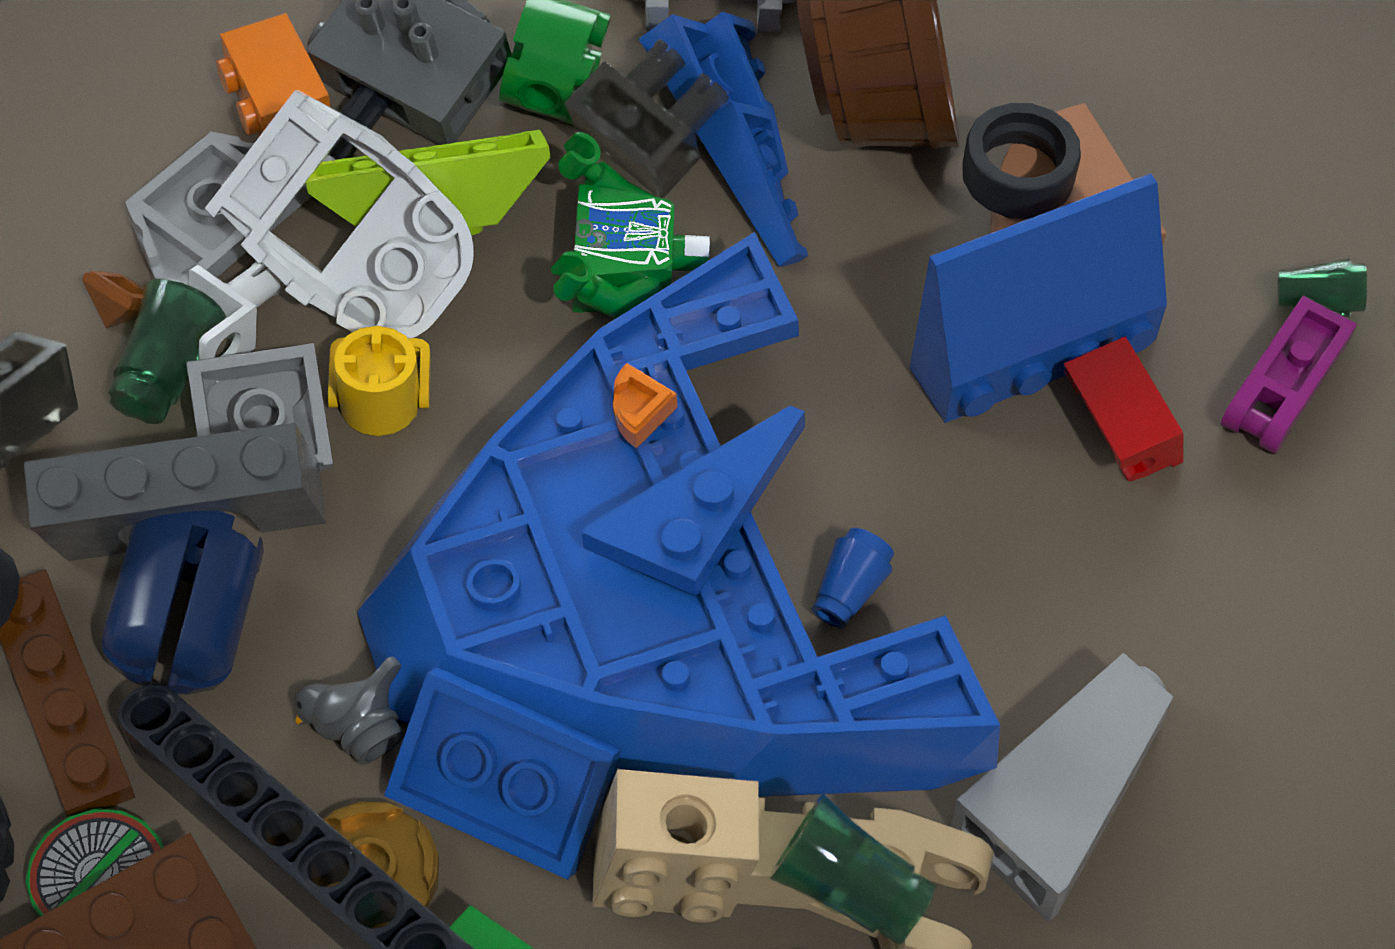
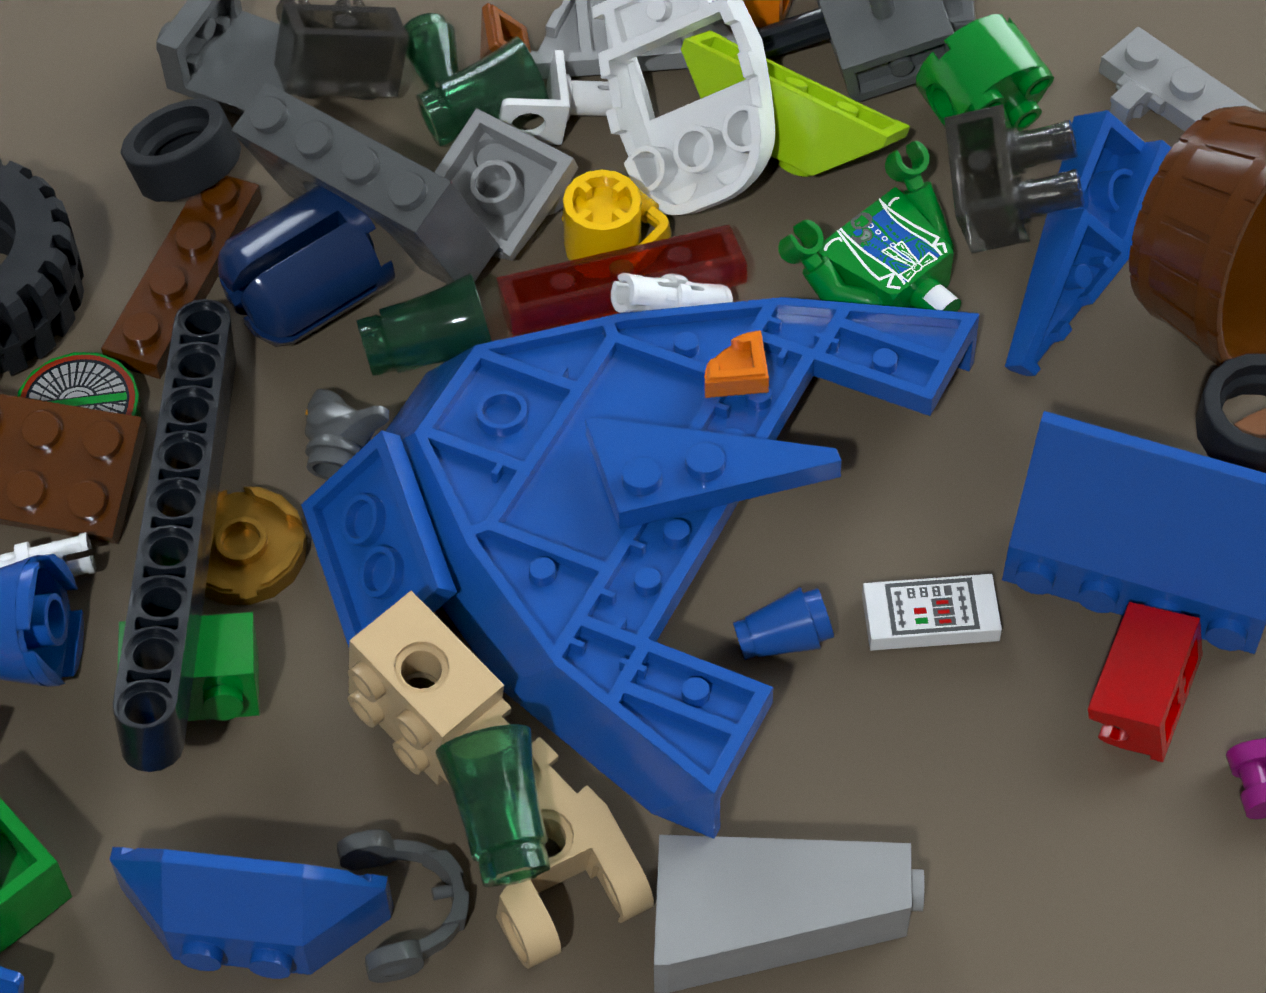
camera: 50 degrees right, 0 degrees up
(87, 353) = (432, 47): none -> clear green cone
(335, 571) = (425, 328): none -> clear green plant
(437, 418) = (583, 286): none -> clear red brick
(504, 396) = (670, 291): none -> white pin
(930, 484) = (931, 612): none -> white tile

